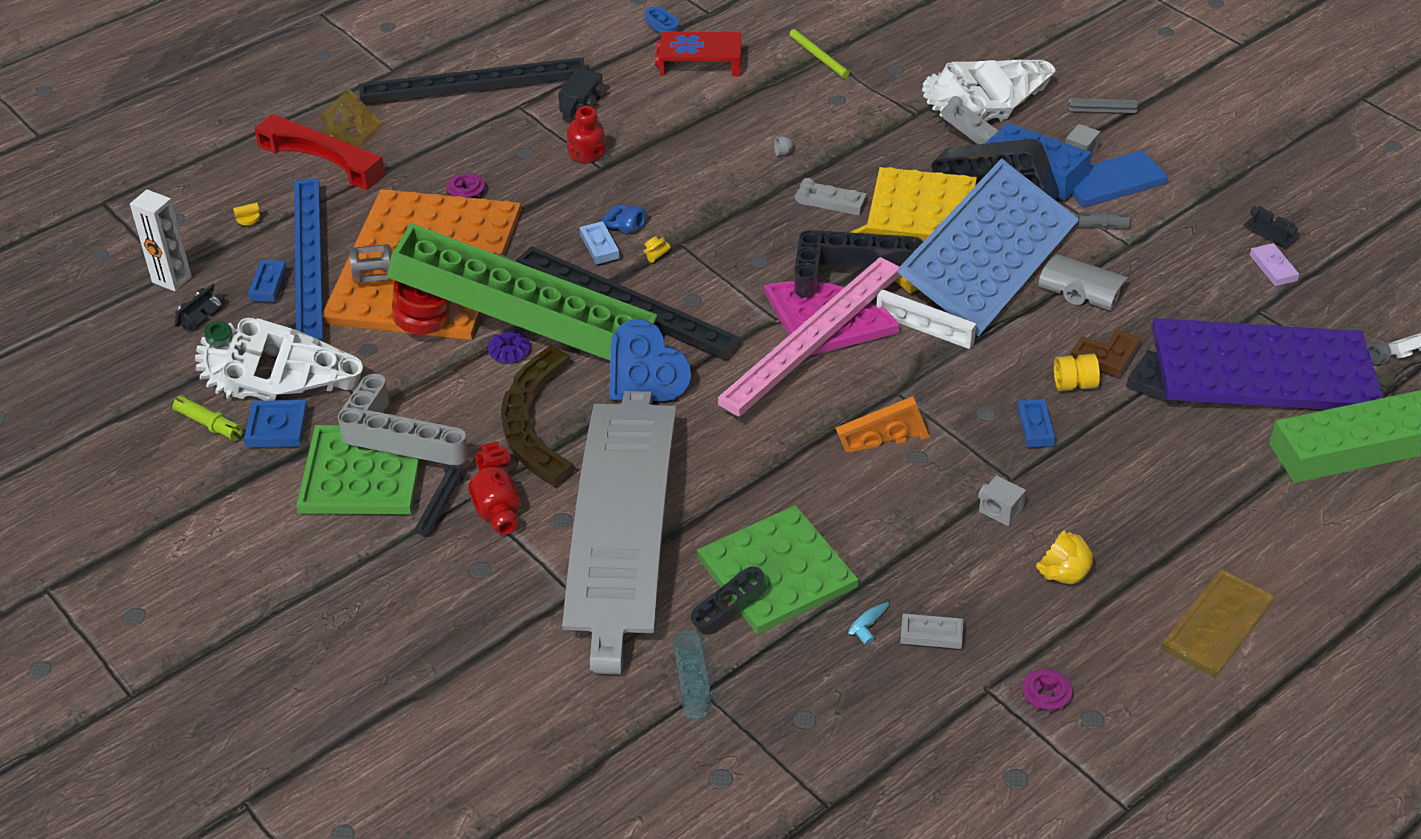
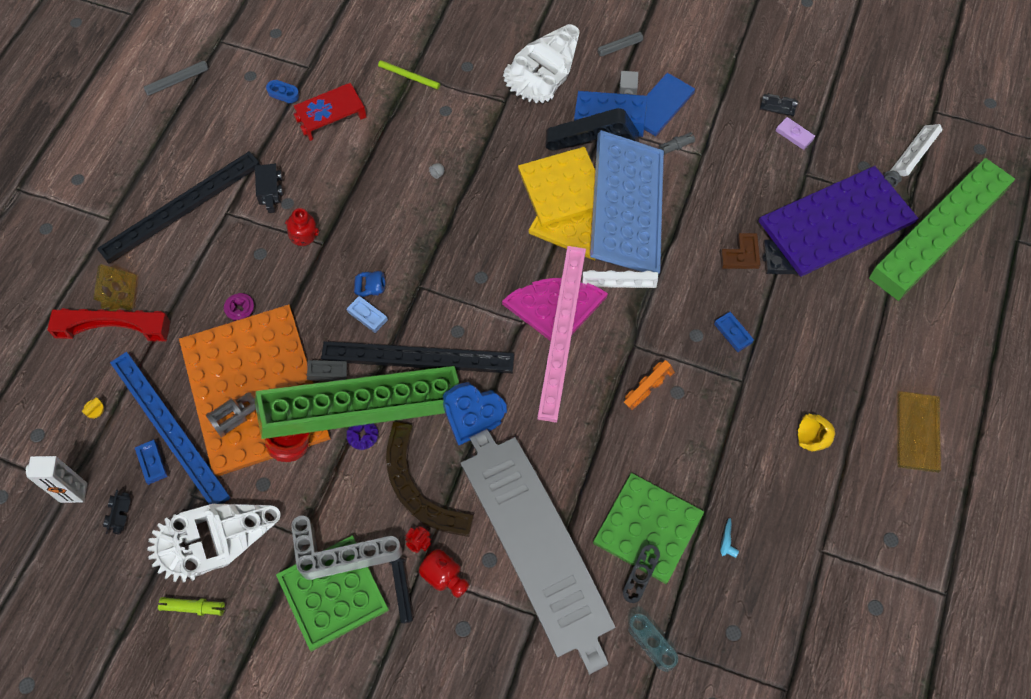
camera: 30 degrees left, 20 degrees up
(218, 334) = (158, 539): dark green tile -> none
(276, 423) = (244, 585): blue plate -> none
(656, 248) = (407, 300): yellow plate -> none
(830, 197) = (495, 201): light grey plate -> none
(846, 250) = (544, 252): black beam -> none
(931, 631) = (769, 527): light grey plate -> none
(967, 121) = (553, 100): light grey plate -> none
(1001, 500) = (751, 405): light grey brick -> none
(1048, 680) = (867, 534): magenta gear -> none
(1080, 372) = (737, 280): yellow wheel -> none
(1082, 282) = (695, 201): light grey panel -> none

